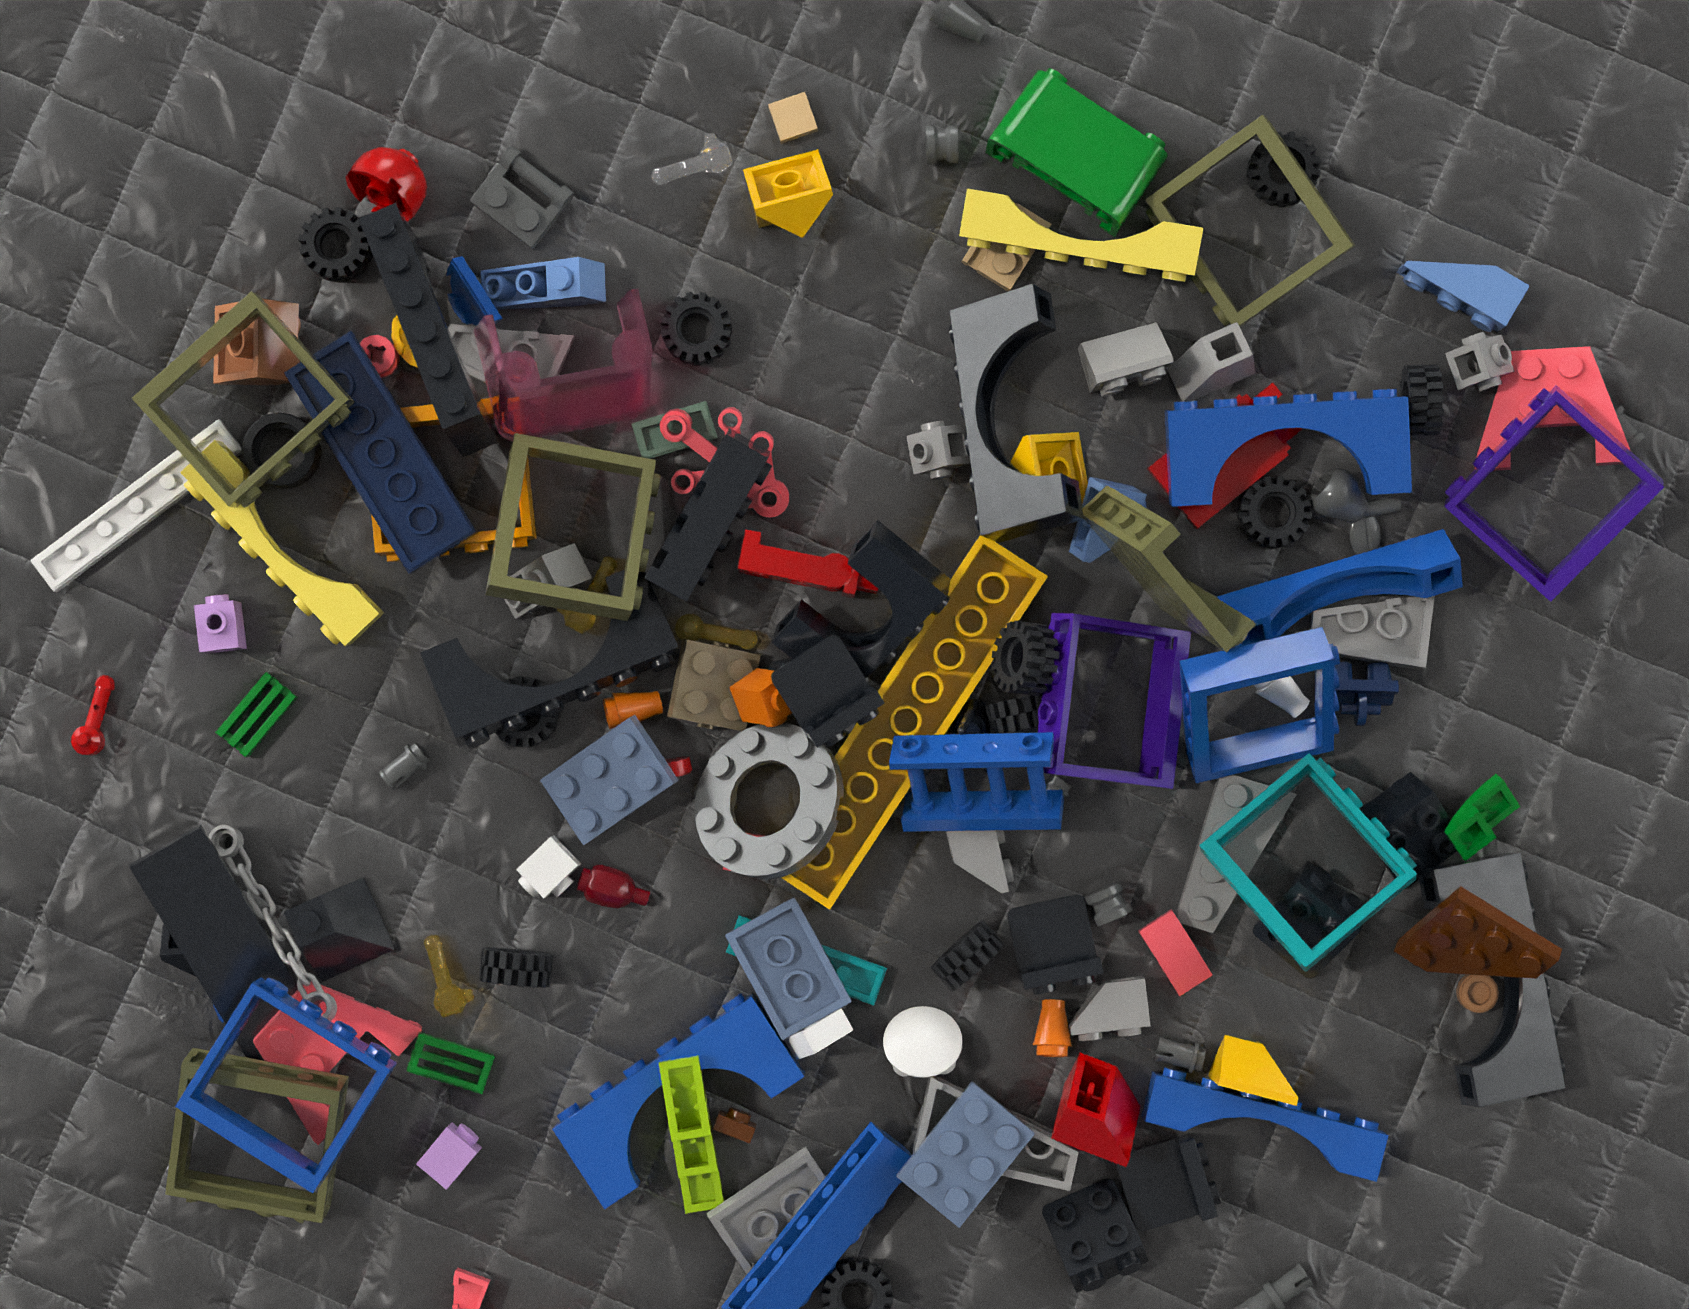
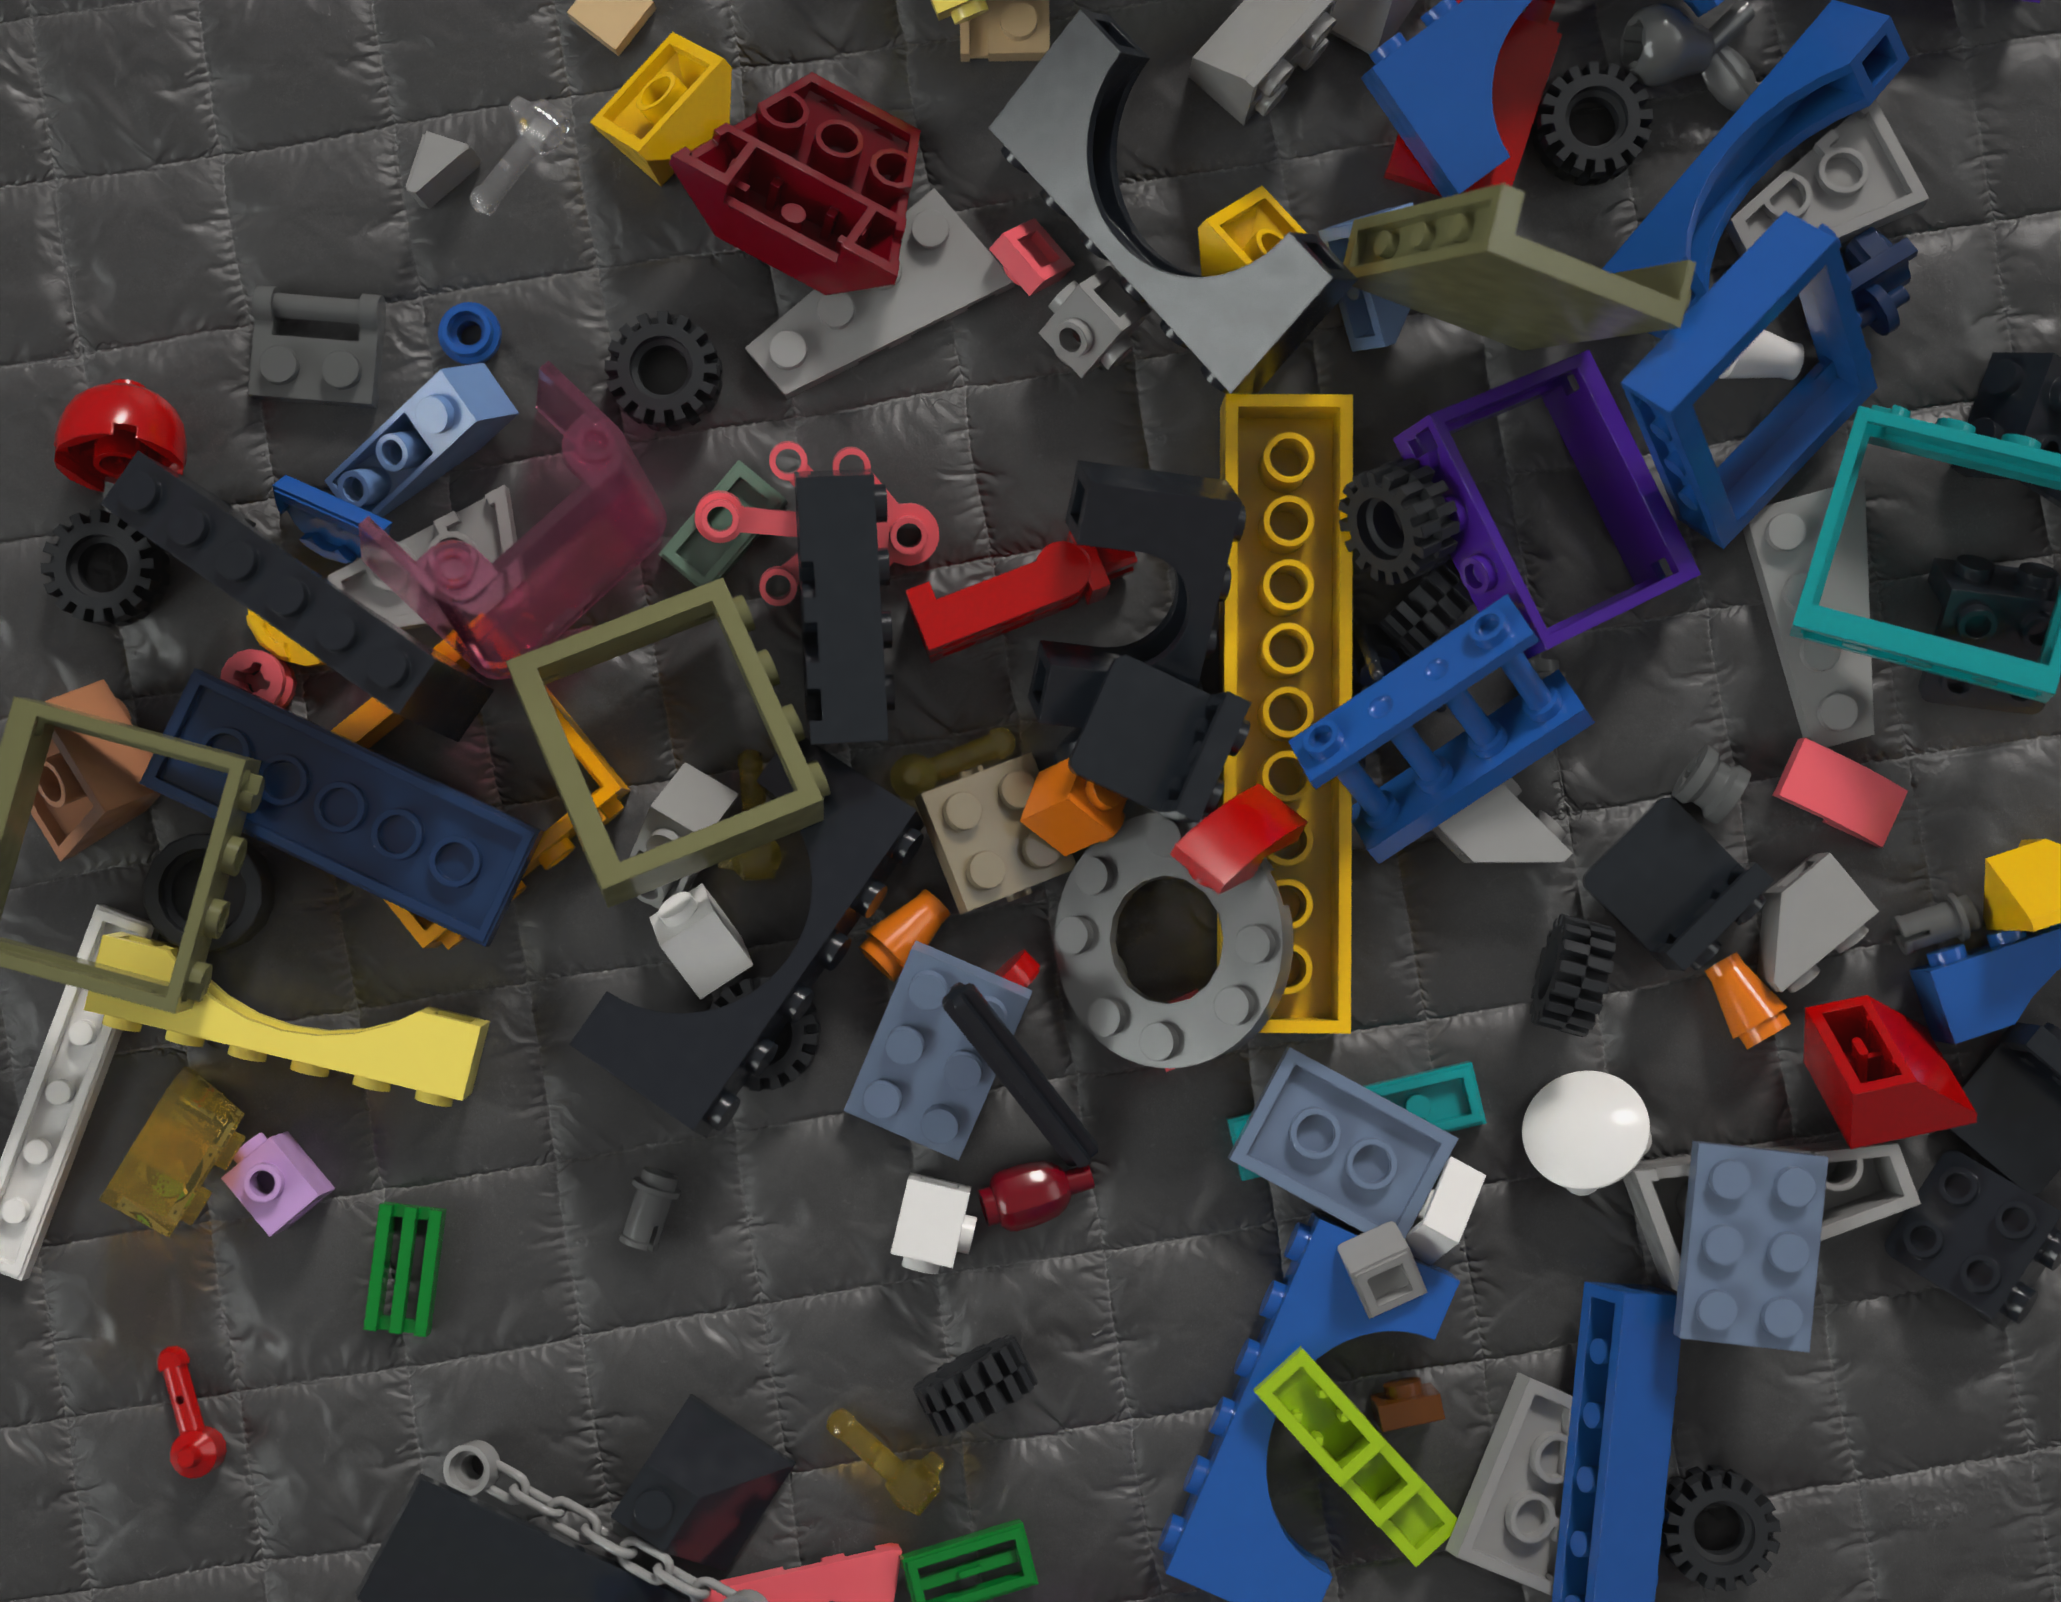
camera: 35 degrees left, 0 degrees up
(178, 578) = (174, 1155): none -> clear yellow slope
(522, 642) = (700, 940): none -> white brick
(607, 230) = (458, 319): none -> blue plate
(643, 820) = (1019, 1074): none -> black axle
(646, 144) = (439, 168): none -> light grey slope
(766, 1043) = (1382, 1269): none -> light grey slope
(833, 768) = (1237, 837): none -> red slope
(837, 281) = (809, 185): none -> dark red wedge
(846, 361) = (937, 279): none -> light grey wing
(929, 392) = (1031, 257): none -> coral plate

